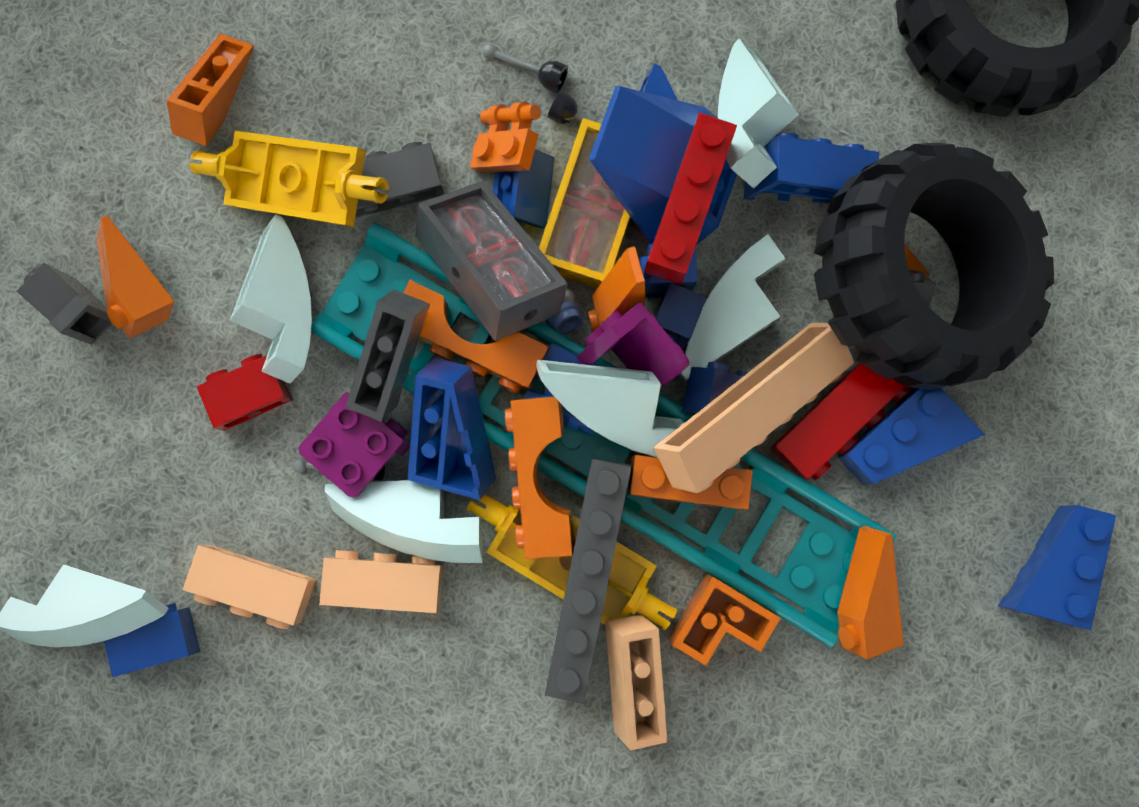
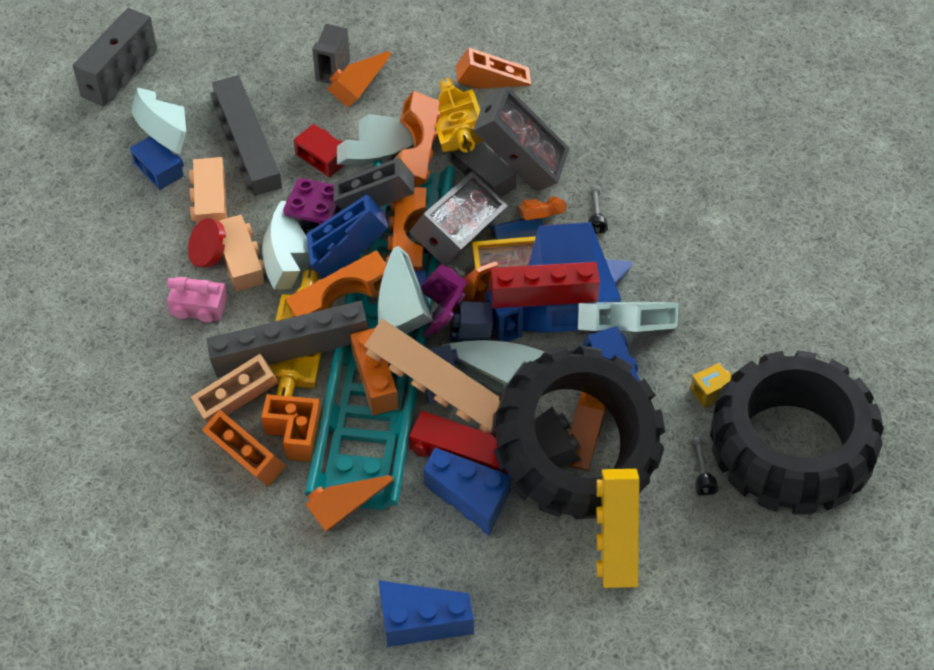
camera: 65 degrees right, 30 degrees down
(158, 490) = (246, 136): none -> dark grey brick
(274, 230) = (420, 117): none -> orange arch
(350, 625) = (206, 242): none -> red tile
(387, 108) = (521, 139): none -> dark grey brick
(439, 674) = (196, 299): none -> bright pink brick
(728, 701) = (244, 448): none -> orange brick
(882, 62) = (708, 384): none -> yellow brick
(1012, 143) = (705, 479): none -> black hinge
(1085, 280) = (618, 528): none -> yellow brick

